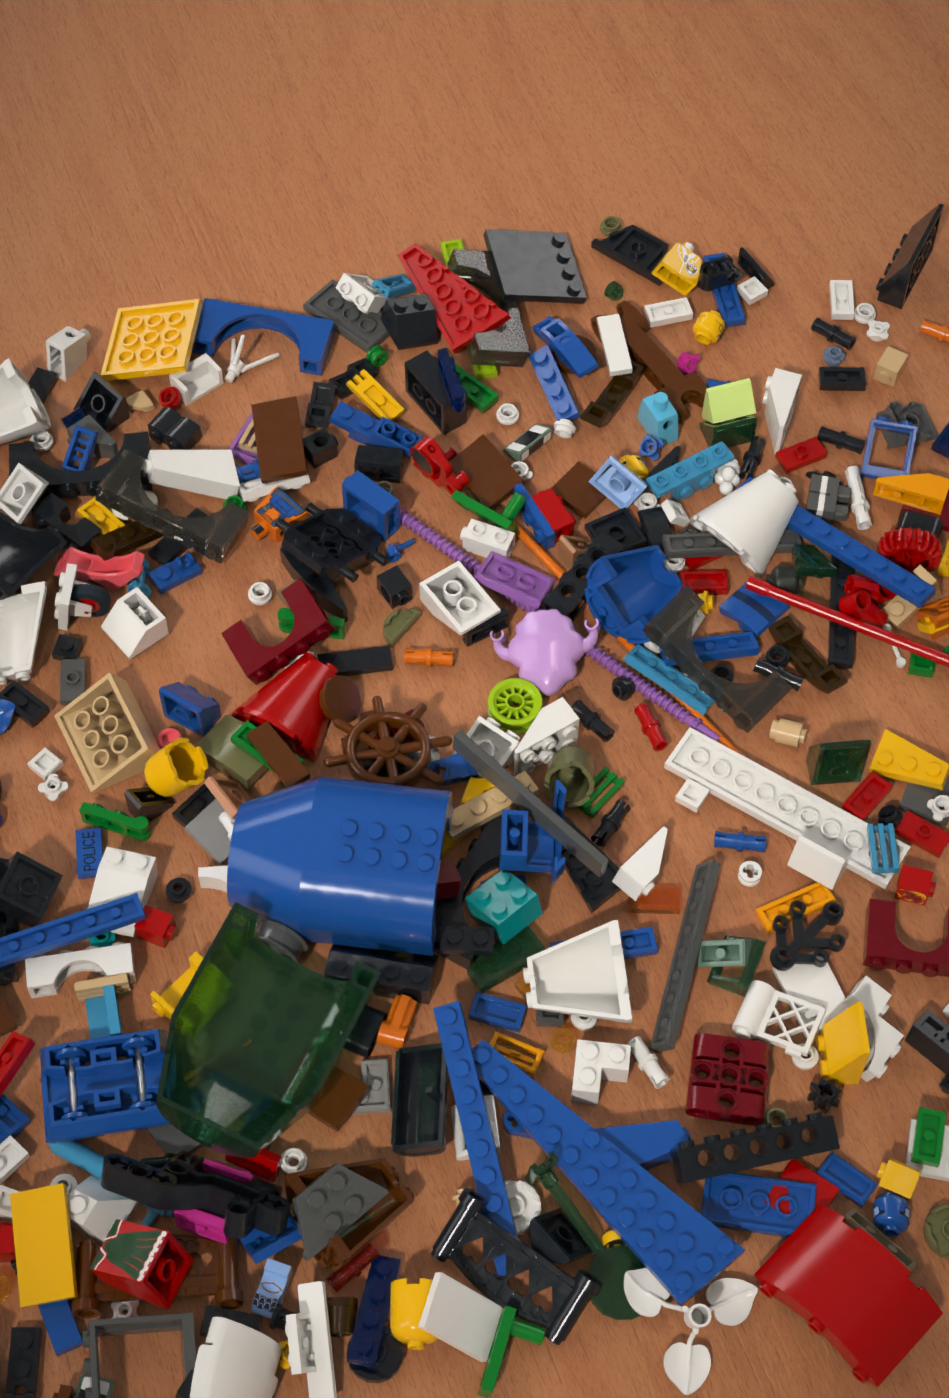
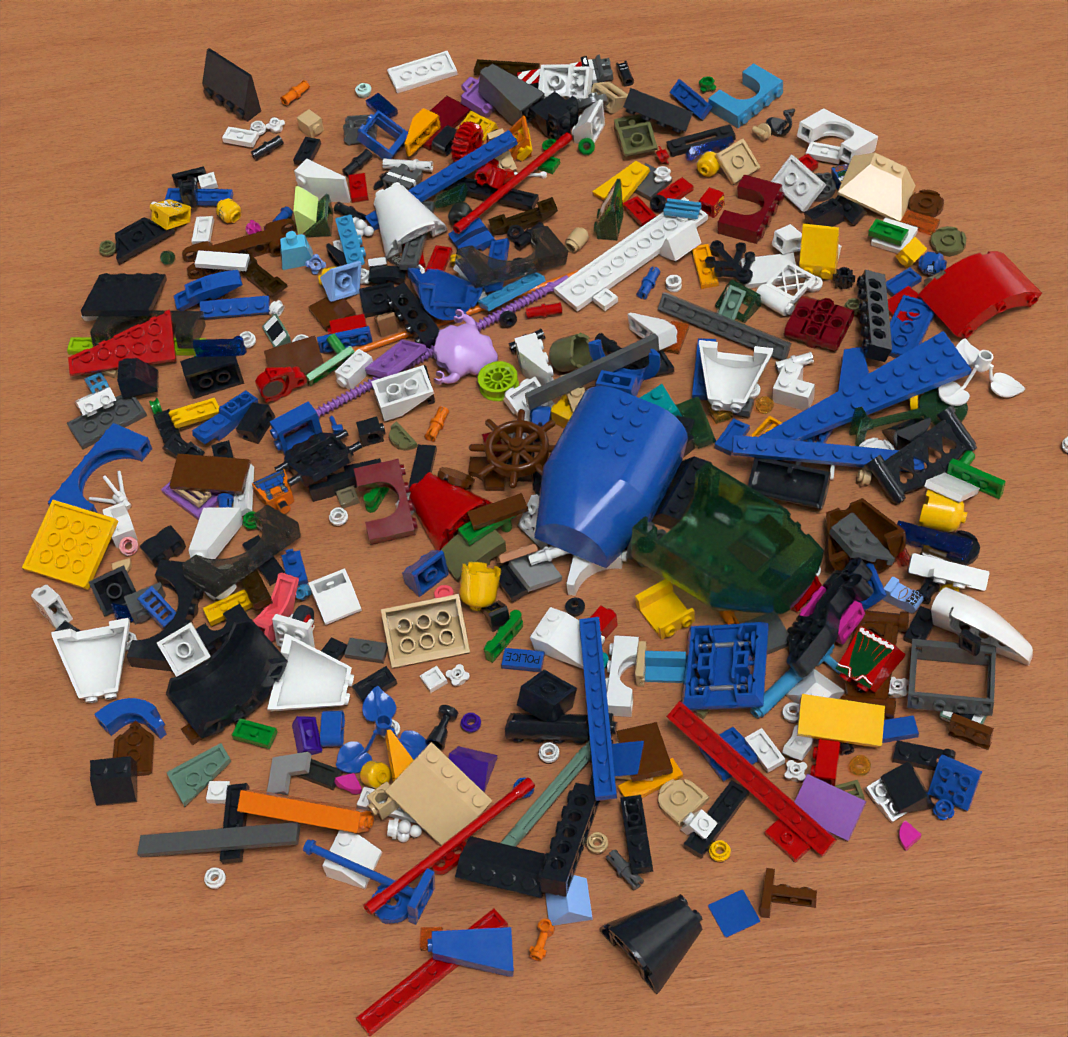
camera: 65 degrees left, 5 degrees down
(833, 356) = (285, 152): sand blue plate -> none

